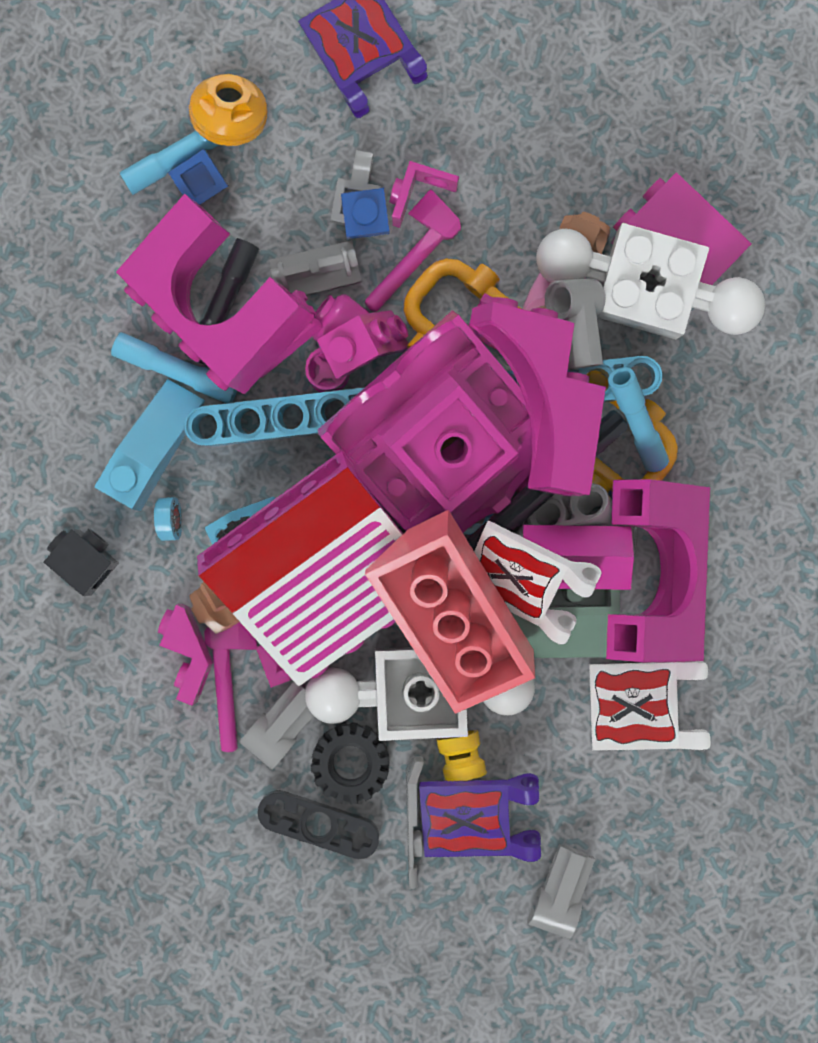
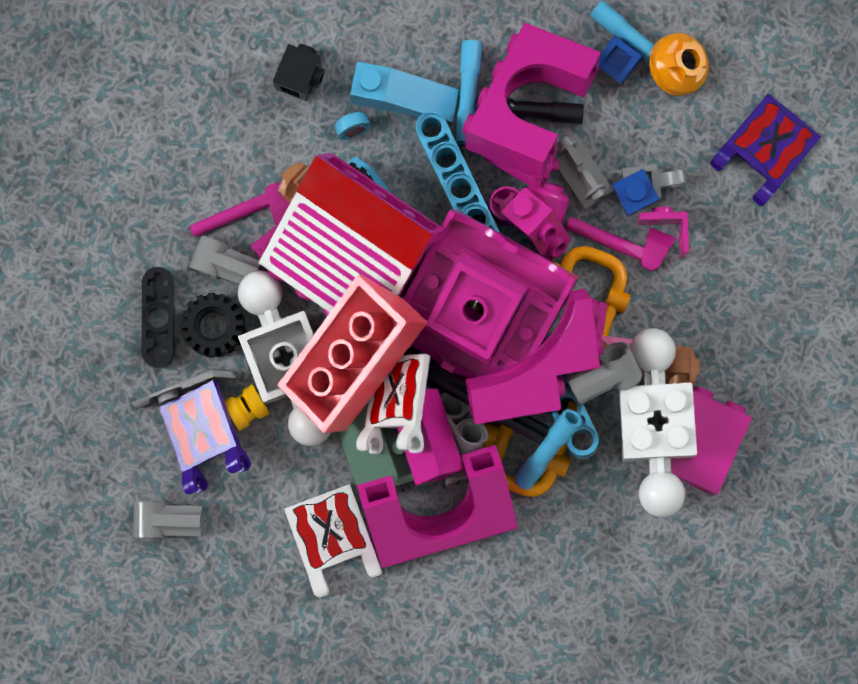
camera: 75 degrees right, 5 degrees down
(184, 637) = (267, 168): dark pink slope -> none

